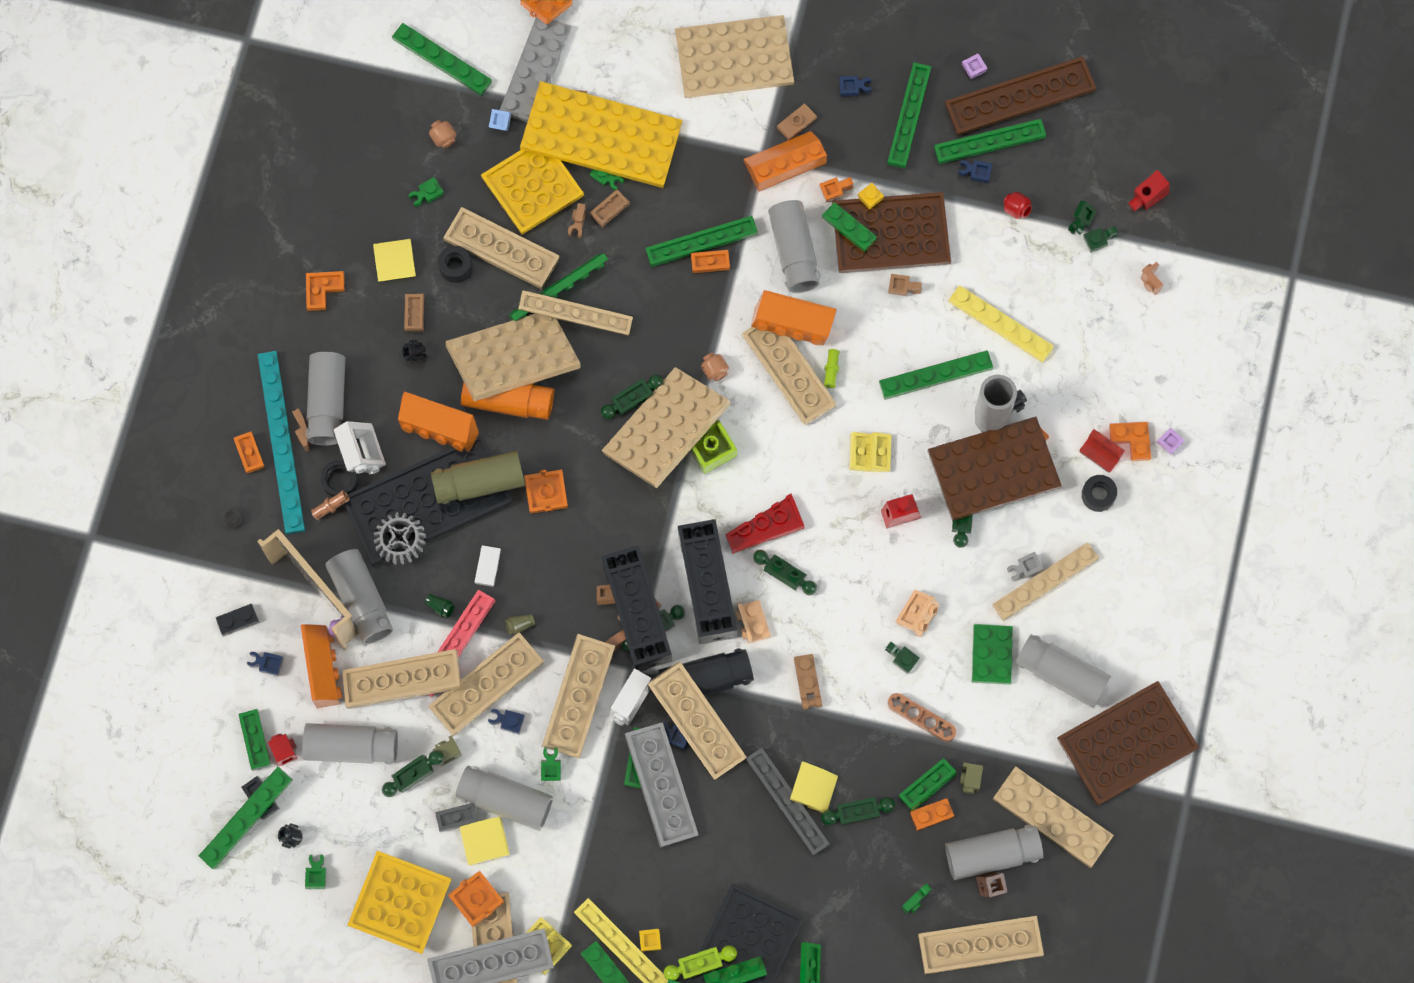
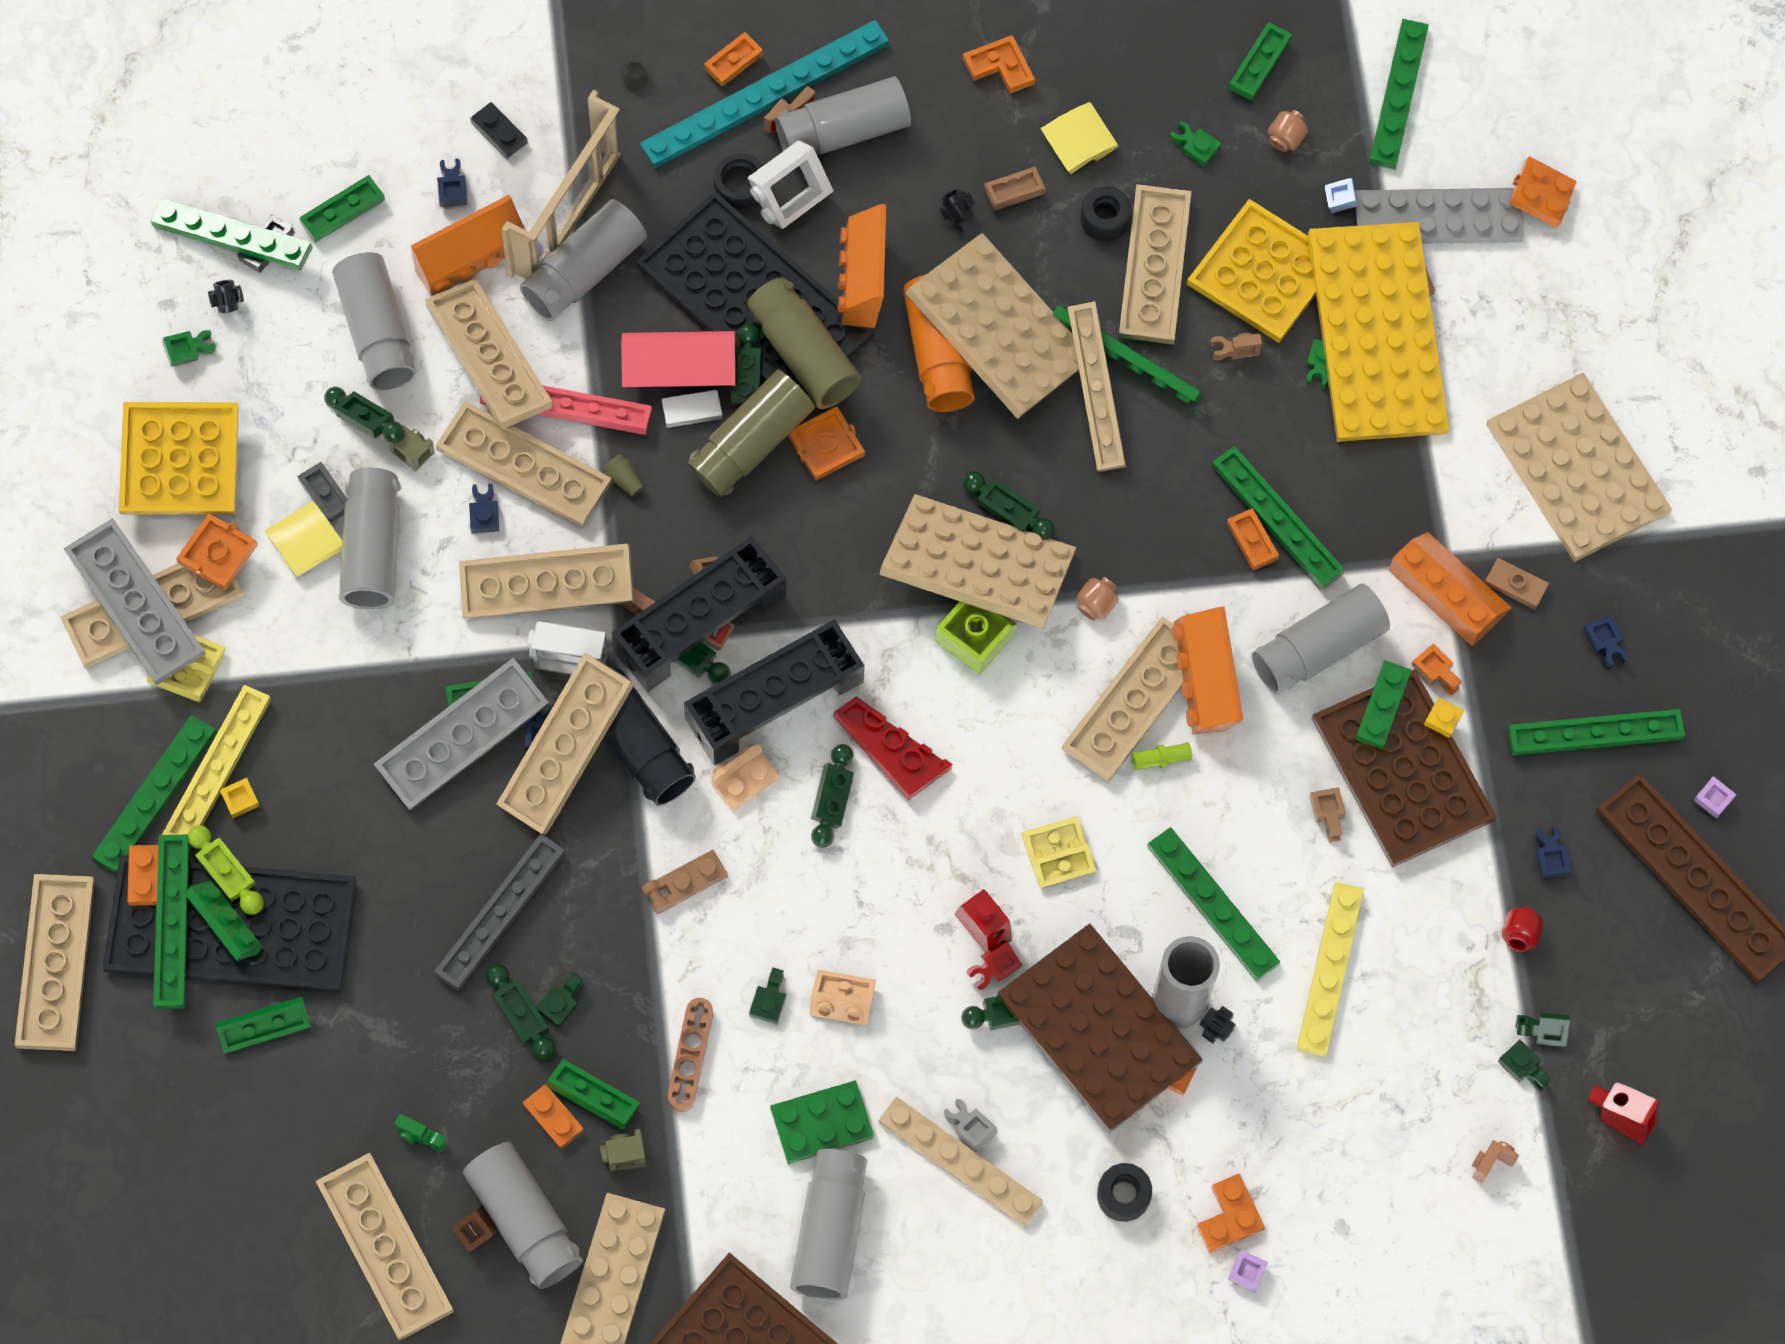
camera: 65 degrees right, 5 degrees down
(283, 749) = (339, 243): red brick -> none
(330, 505) = (697, 181): nougat pin -> none
(386, 131) = (1260, 61): none -> green plate
(405, 533) = (674, 267): light grey gear -> none
(441, 606) = (610, 371): dark green cone -> none
(455, 559) = (679, 359): none -> coral piece
(482, 523) = (748, 365): none -> dark green plate
(526, 533) = (750, 433): none -> olive piece
(550, 767) = (435, 584): green plate -> none
(609, 208) = (1274, 381): medium nougat plate -> none
(813, 787) = (532, 939): light yellow slope -> none
(860, 785) = (559, 1003): none -> dark green plate
(930, 512) = (998, 963): none -> red plate
(989, 141) = (1606, 858): green plate -> none
(1102, 451) = (1191, 1176): clear red panel -> none

